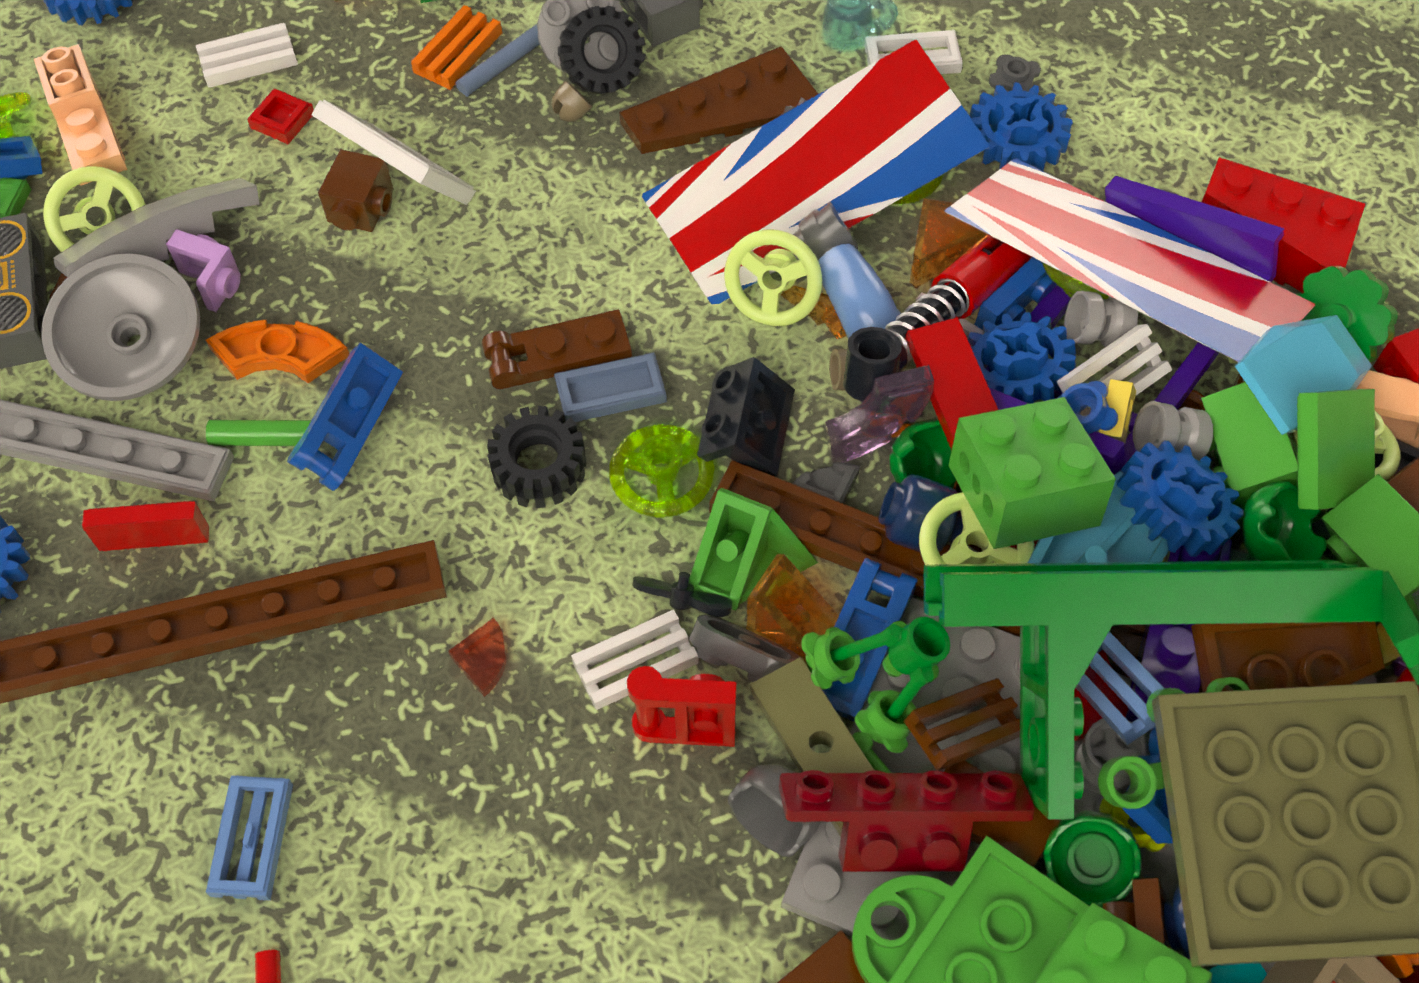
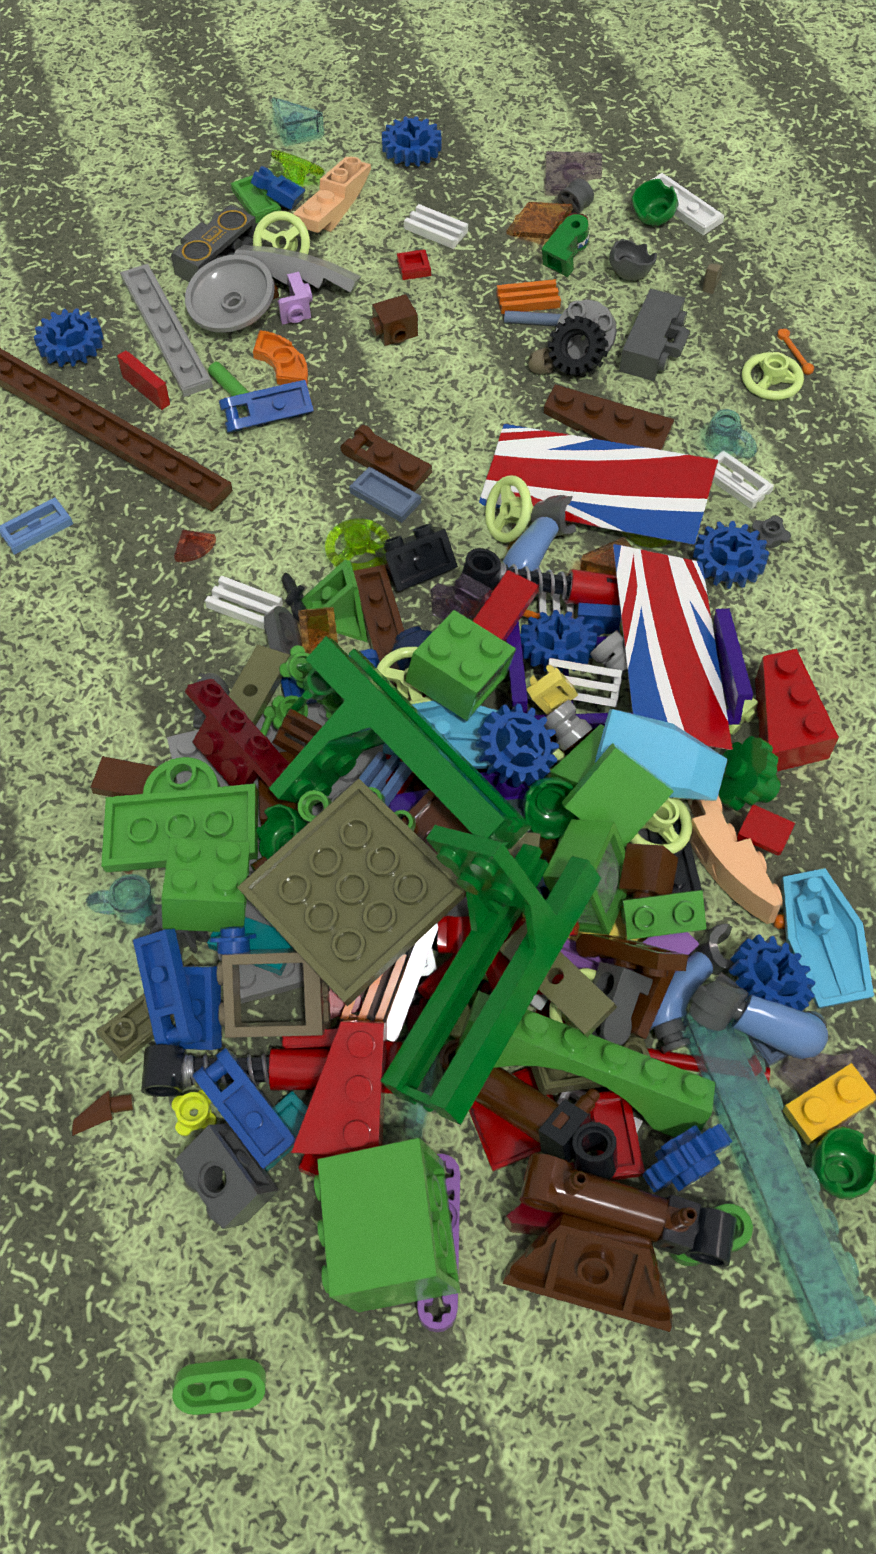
camera: 50 degrees right, 0 degrees up
(394, 152) = (425, 315): white tile -> none
(531, 431) = (314, 476): black tyre -> none
(701, 705) = (223, 628): red plate -> none
(831, 482) = (415, 616): dark grey tile -> none
(1091, 396) = (527, 669): blue plate -> none

